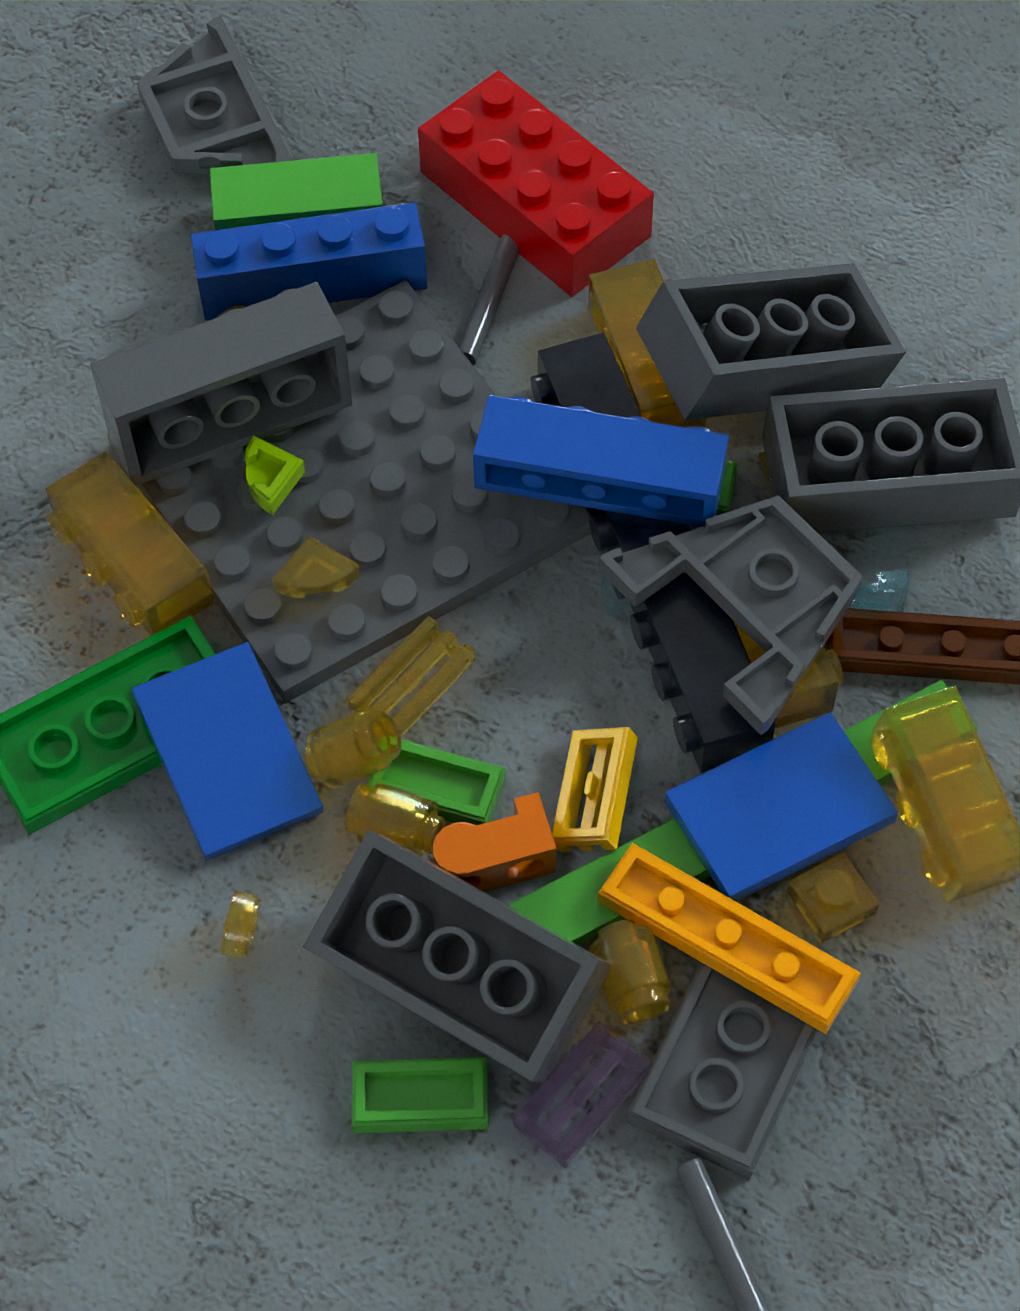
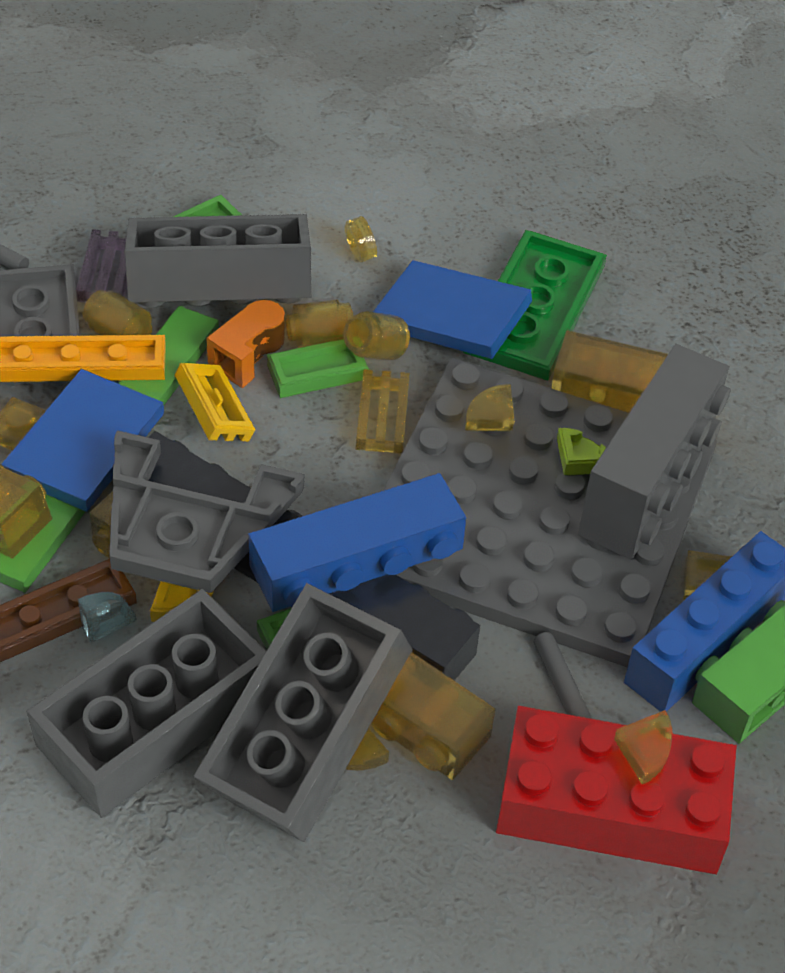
camera: 140 degrees right, 10 degrees down
(501, 148) = (646, 744): none -> clear yellow tile

